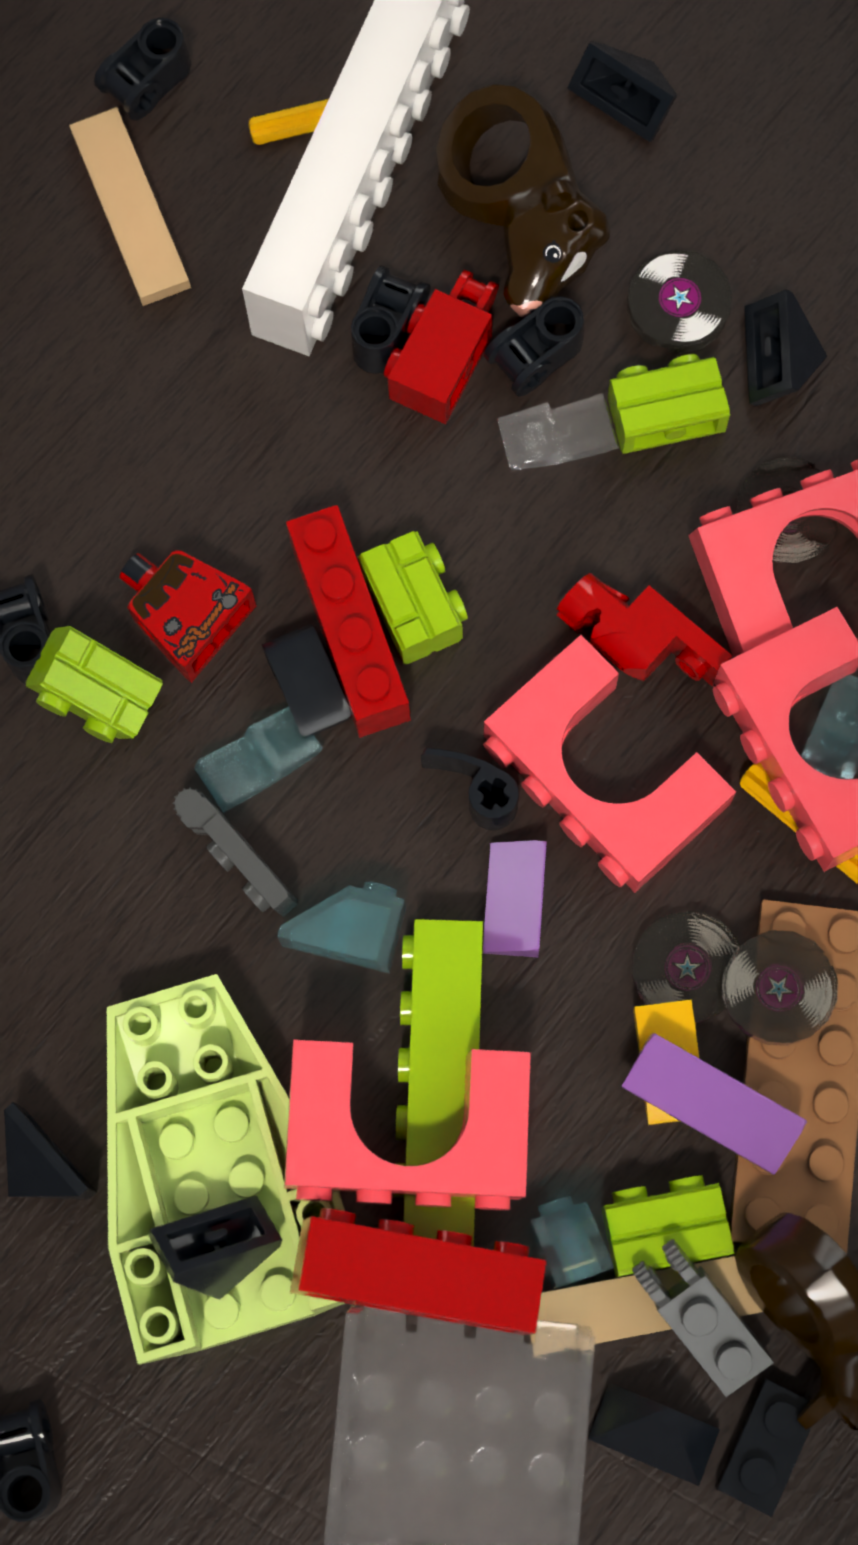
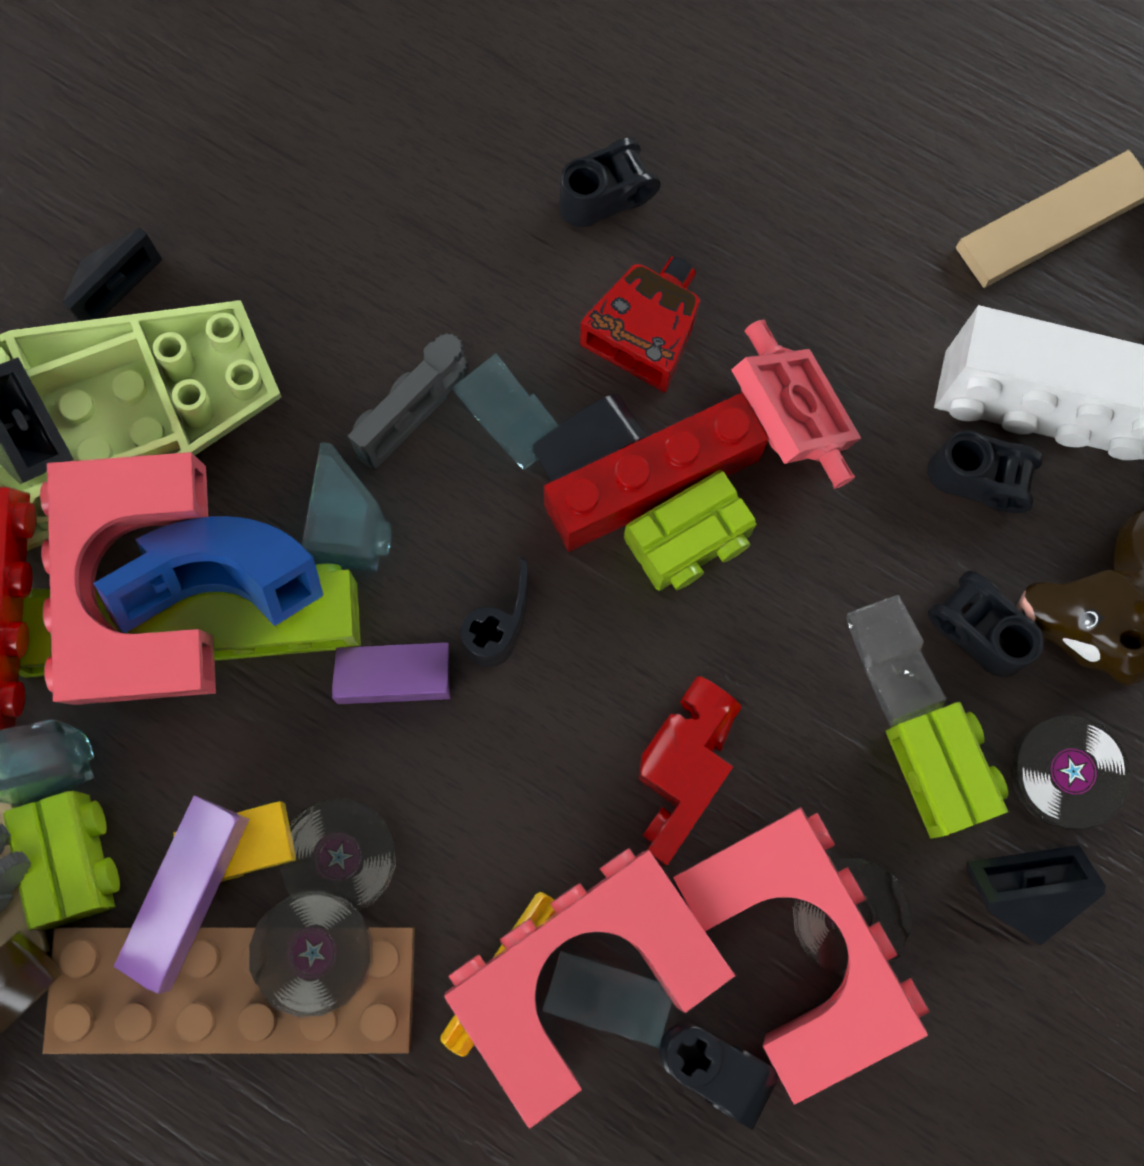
camera: 75 degrees right, 0 degrees up
(93, 684) = (552, 244): lime brick -> none
(300, 476) = (796, 404): none -> coral plate
(390, 1035) = (212, 556): none -> blue arch
(442, 348) = (966, 530): red brick -> none
(629, 837) = (560, 669): coral arch -> none

